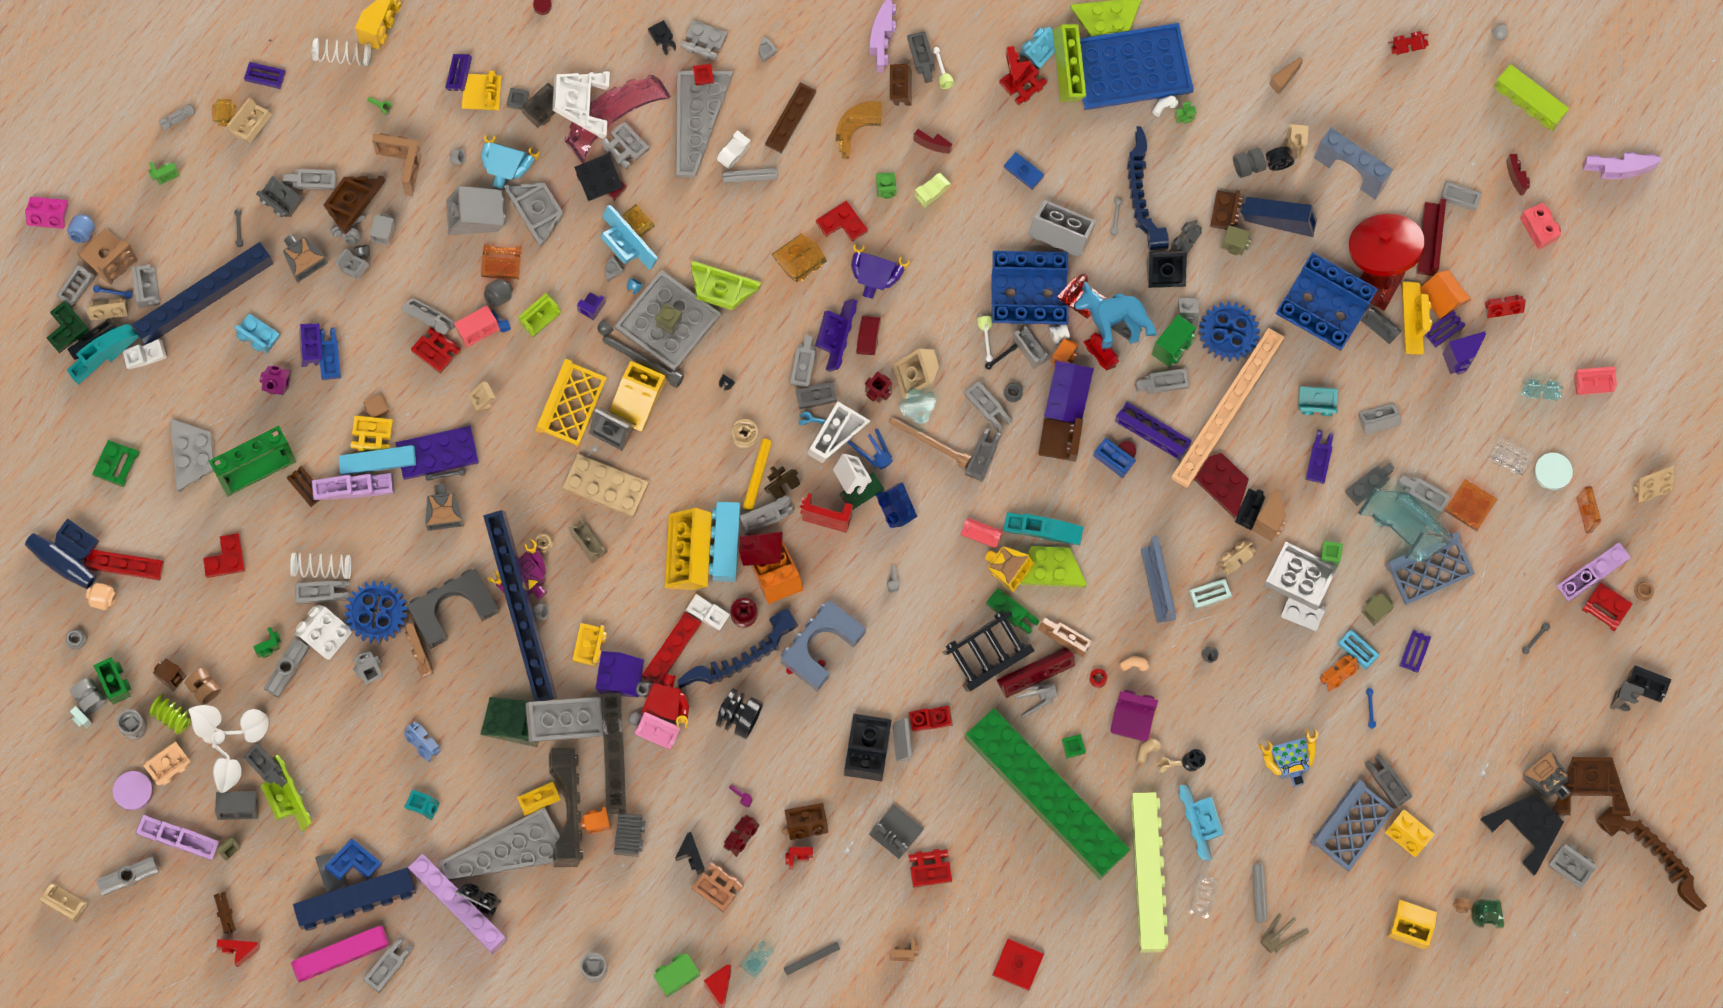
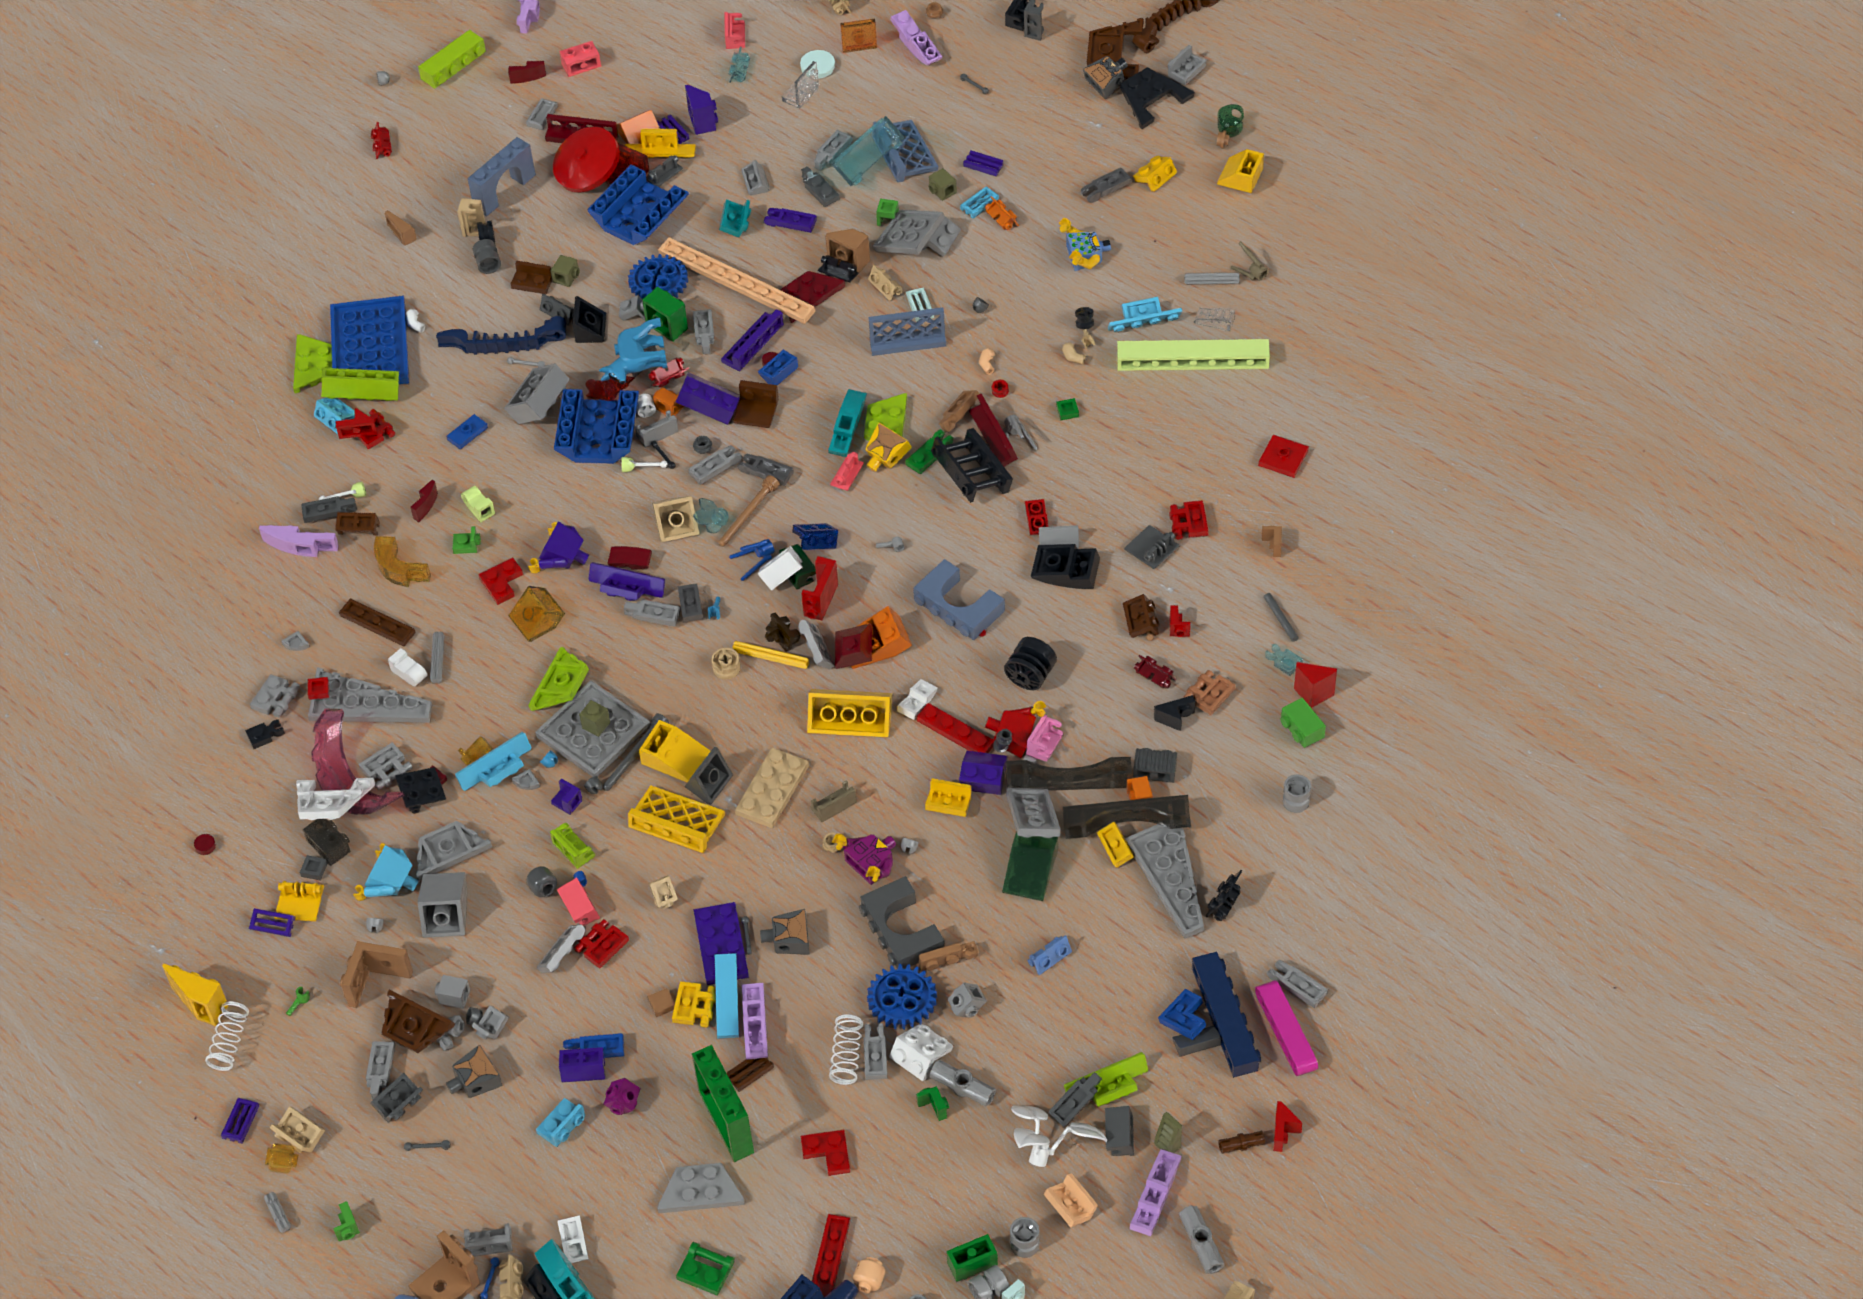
camera: 80 degrees left, 20 degrees down
(132, 790) = (1100, 1241): lavender tile -> none
(169, 674) = (966, 1197): reddish brown slope -> none
(170, 716) = (1011, 1197): lime piece -> none
(201, 684) = (979, 1166): medium nougat wheel -> none
(203, 293) = (506, 1174): dark blue brick -> none
(422, 804) = (1119, 952): teal bracket -> none
(461, 907) = (1254, 894): lavender arch -> none
(501, 267) = (511, 882): clear orange plate -> none
(520, 606) = (907, 847): dark blue brick -> none
(726, 381) = (667, 678): black hinge -> none
(726, 541) = (842, 677): medium azure brick -> none
(743, 620) = (919, 666): dark red wheel -> none
(746, 799) = (1117, 667): magenta hand -> none
(782, 623) = (982, 688): dark blue piece -> none
(836, 431) = (732, 583): white wedge -> none
(876, 382) = (688, 546): dark red brick -> none
(1047, 794) = (1115, 426): green brick -> none
(1133, 715) = (1038, 361): magenta bracket -> none
(1186, 114) = (429, 300): bright green plate -> none
(1280, 215) = (546, 232): dark blue slope -> none
(1337, 816) = (1142, 220): sand blue fence -> none
(1372, 723) = (1051, 196): blue hinge -> none
(1471, 505) = (846, 117): clear orange plate -> none
(1511, 306) = (654, 87): red hinge -> none
(1609, 601) = (945, 31): red plate -> none

